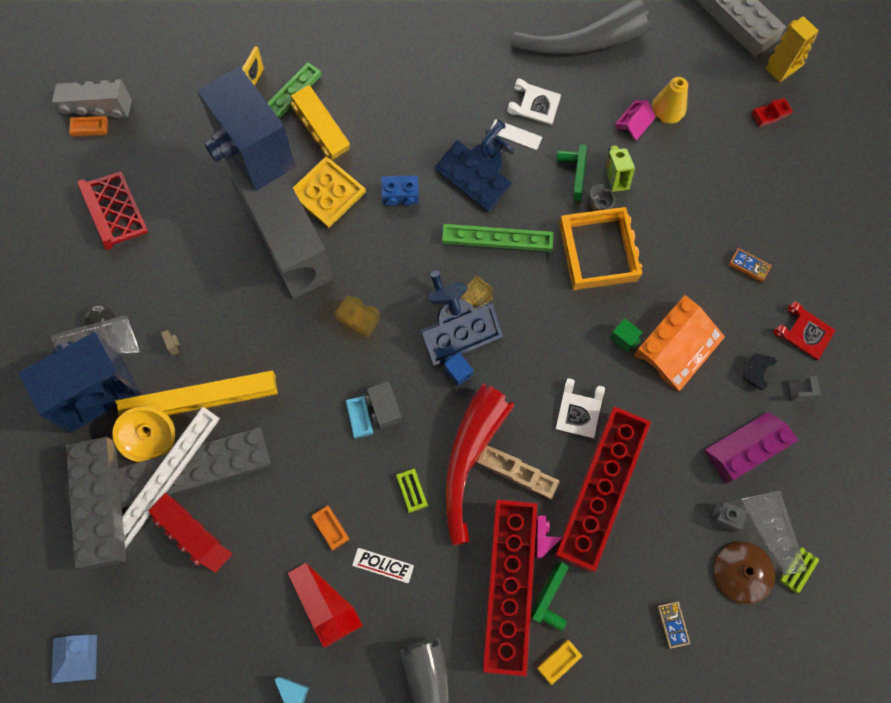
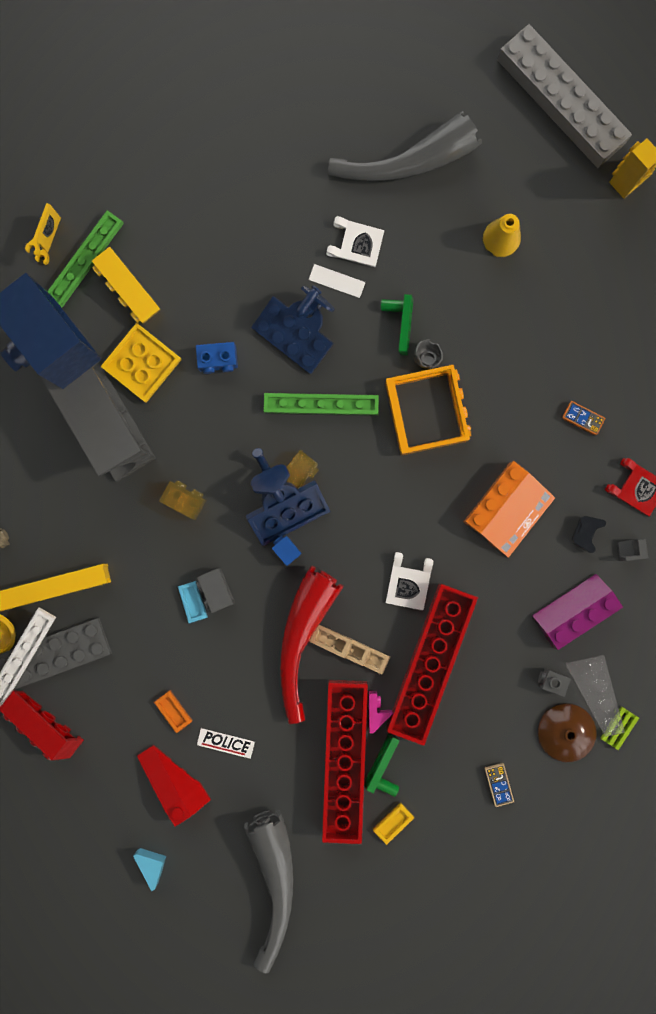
camera: 10 degrees right, 15 degrees up
(417, 506) = (254, 687): lime tile -> none
(619, 169) = (446, 318): lime torso -> none
(626, 335) = (454, 505): green brick -> none
(636, 118) = (465, 255): dark pink panel -> none
(771, 113) = (613, 237): red slope -> none

